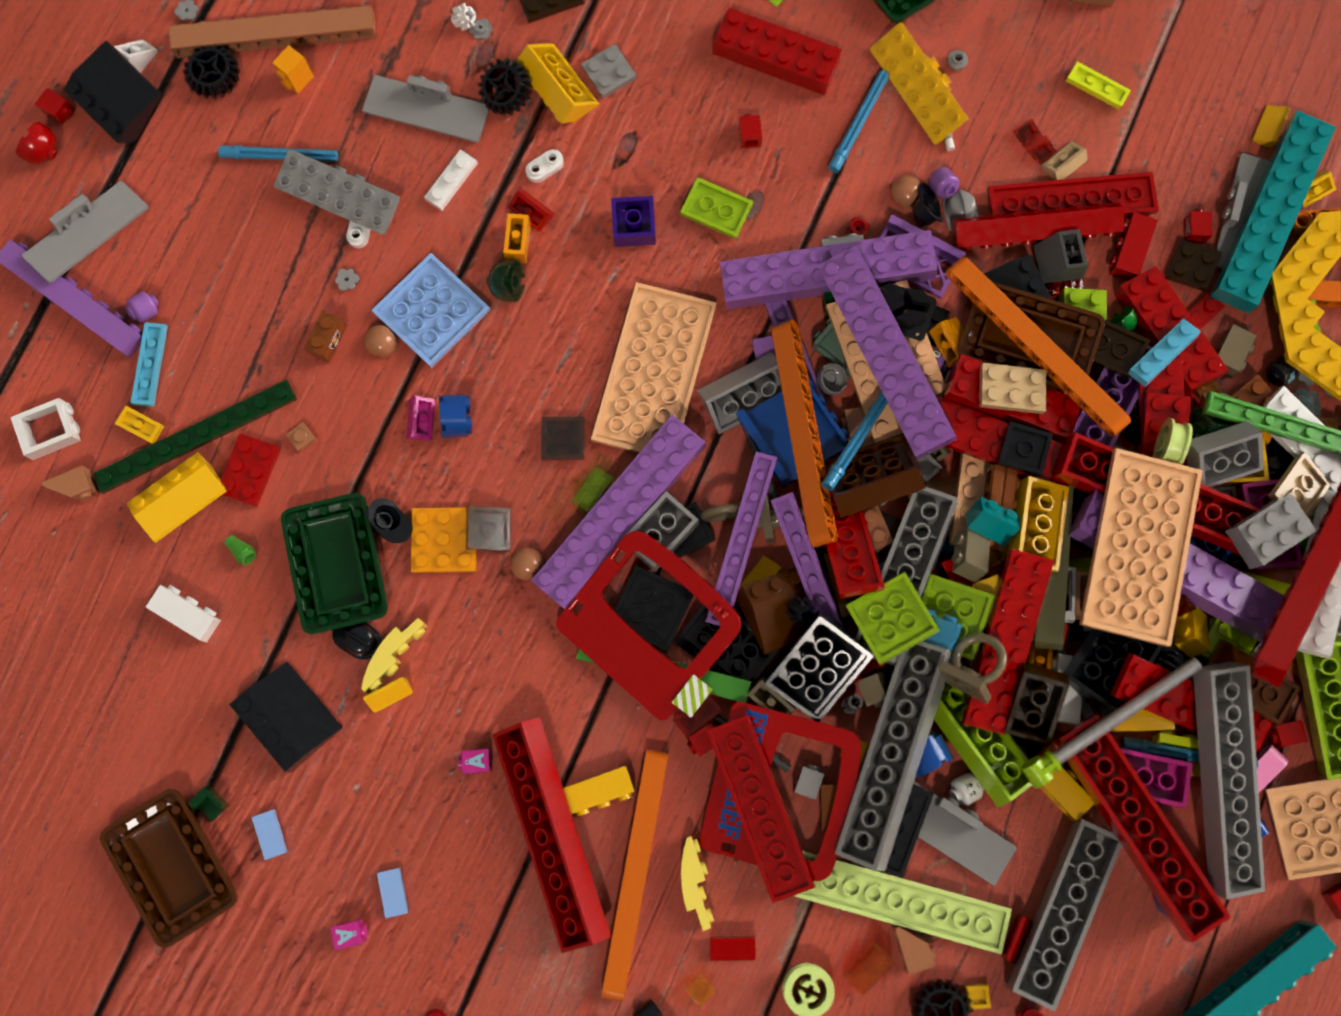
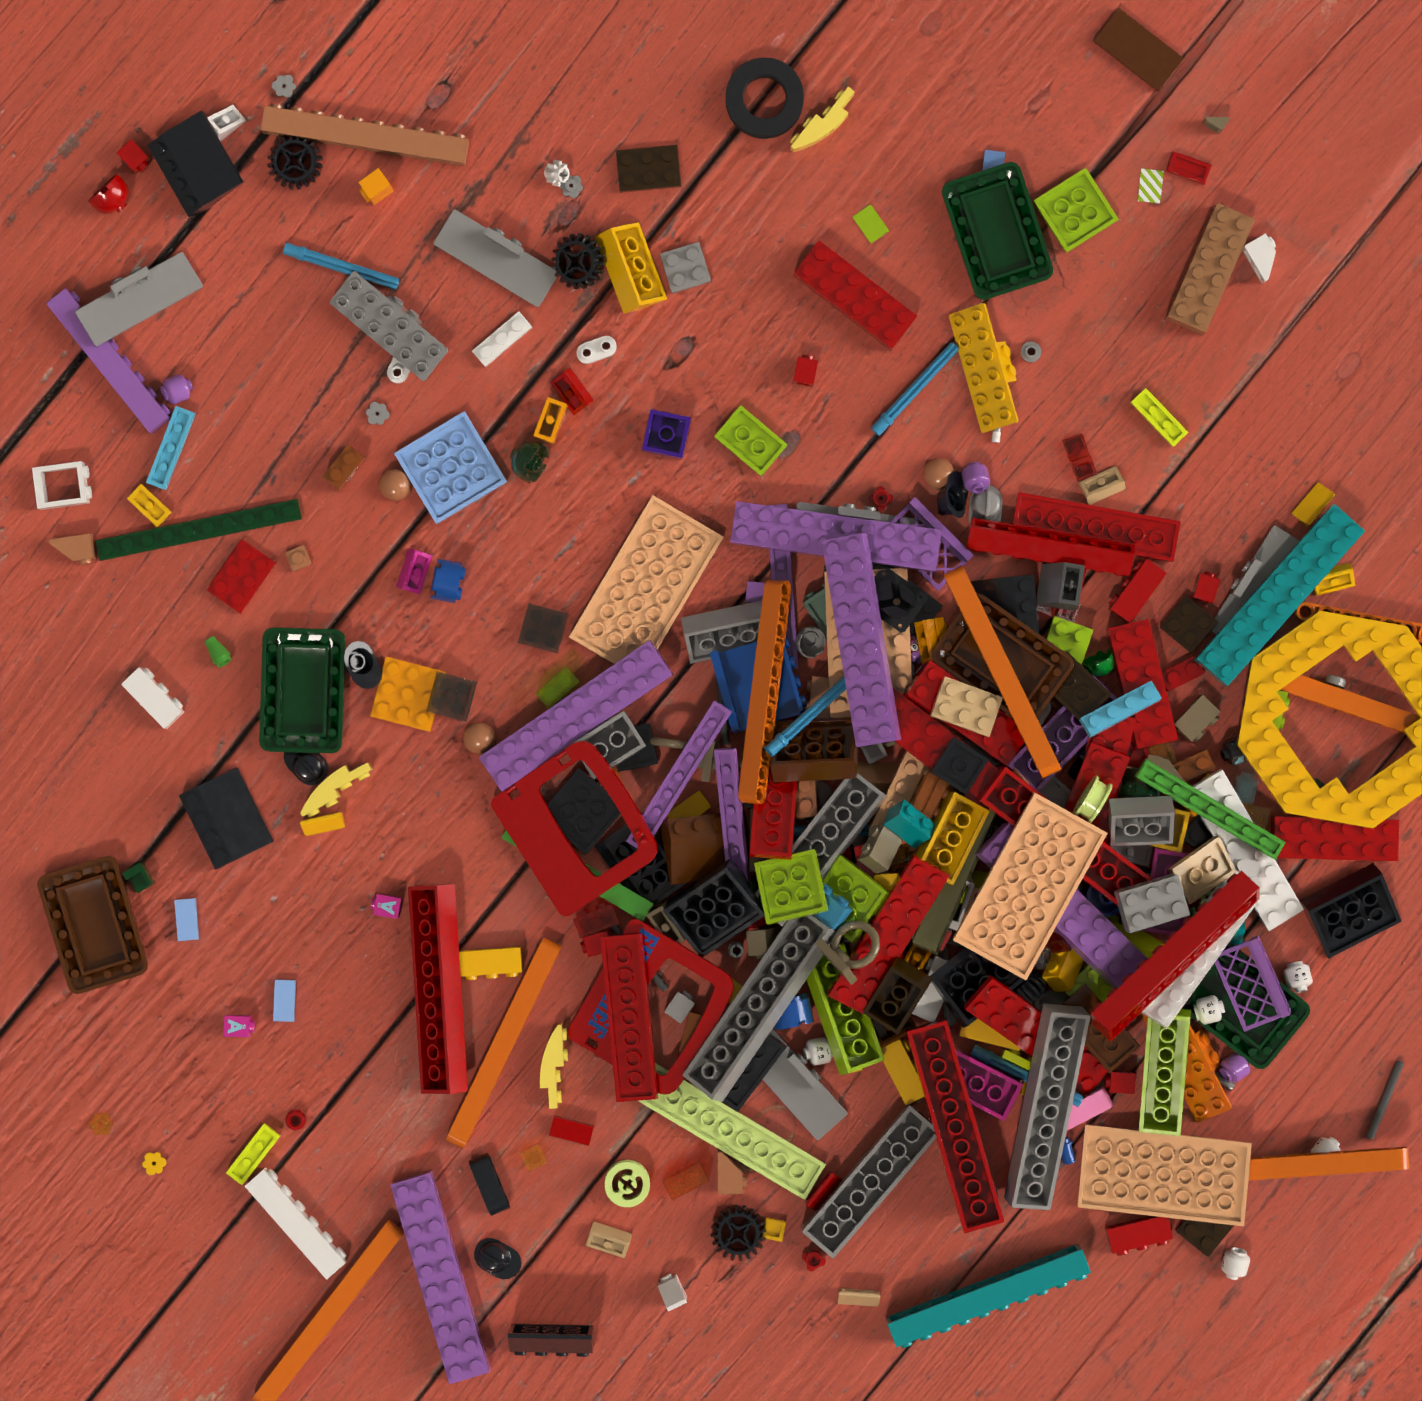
camera: 10 degrees right, 10 degrees up
(176, 497) = (171, 588): yellow slope -> none
(692, 696) = (595, 903): sticker -> none
(800, 610) = (713, 855): black gear -> none
(1040, 769) = (879, 1054): flat silver piece -> none

